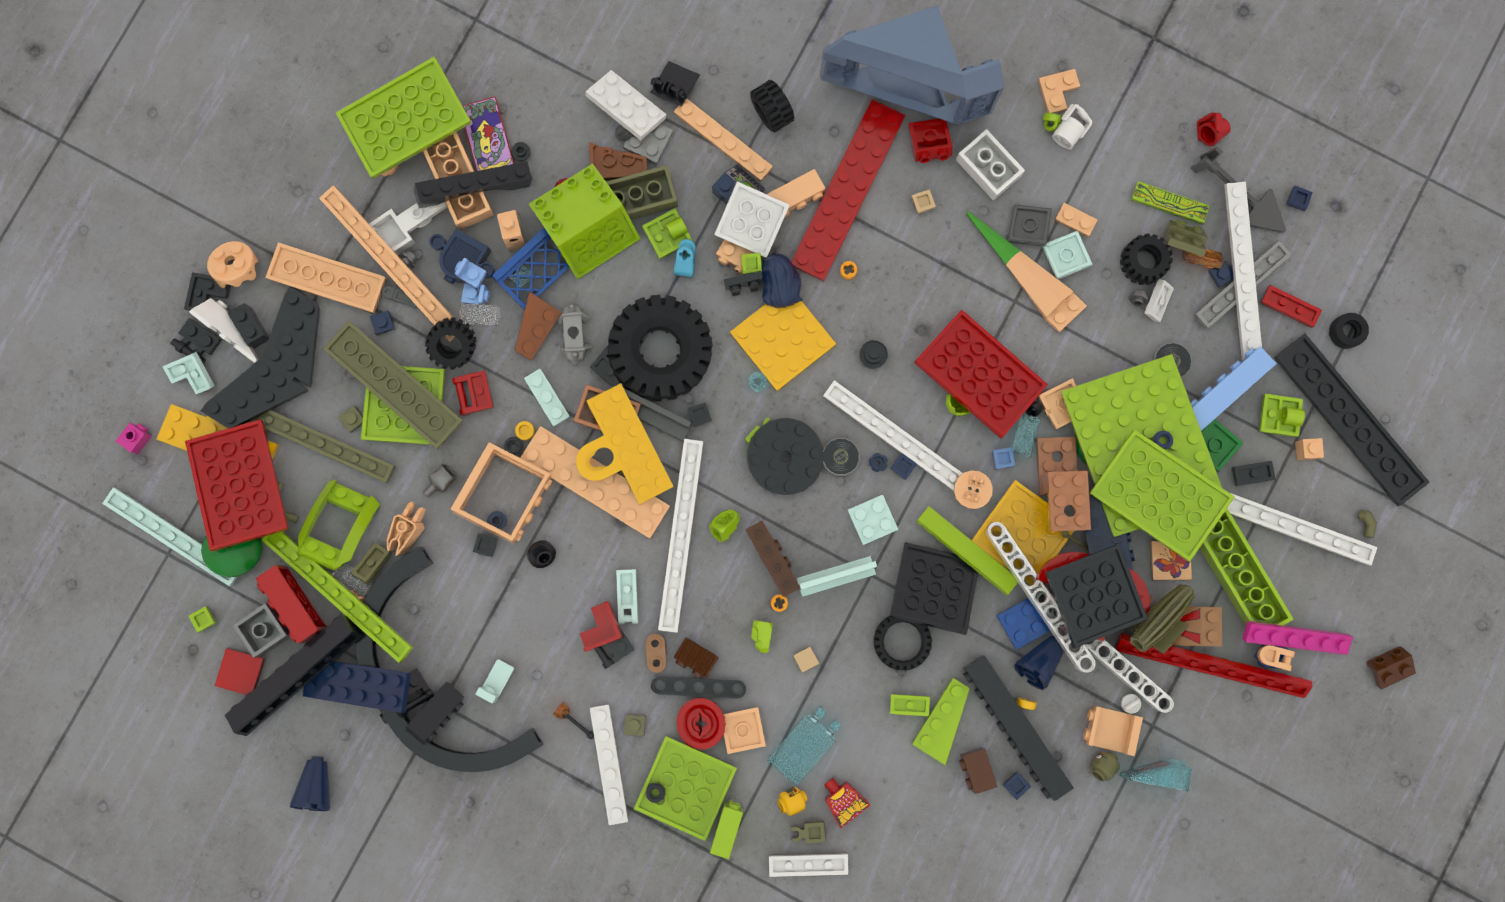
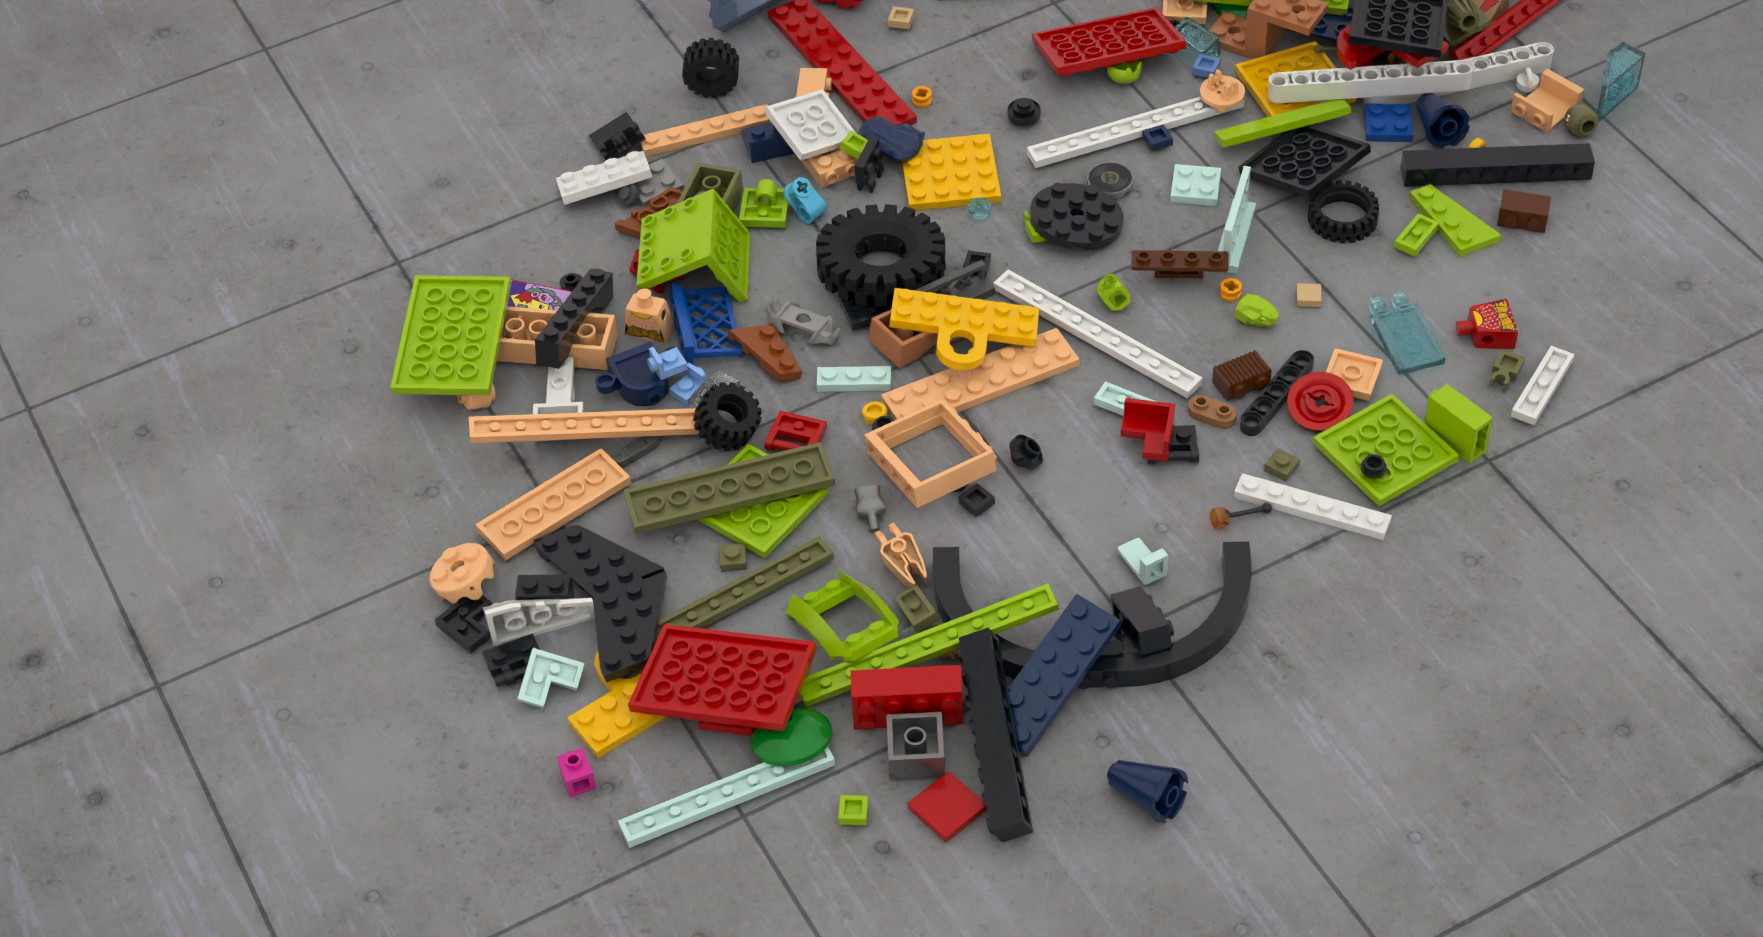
camera: 55 degrees left, 35 degrees down
(382, 322) = (646, 476): dark blue plate -> none
(792, 801) = (1460, 365): yellow head -> none
(878, 457) = (1138, 154): dark blue plate -> none
(1016, 785) = (1560, 191): dark blue plate -> none

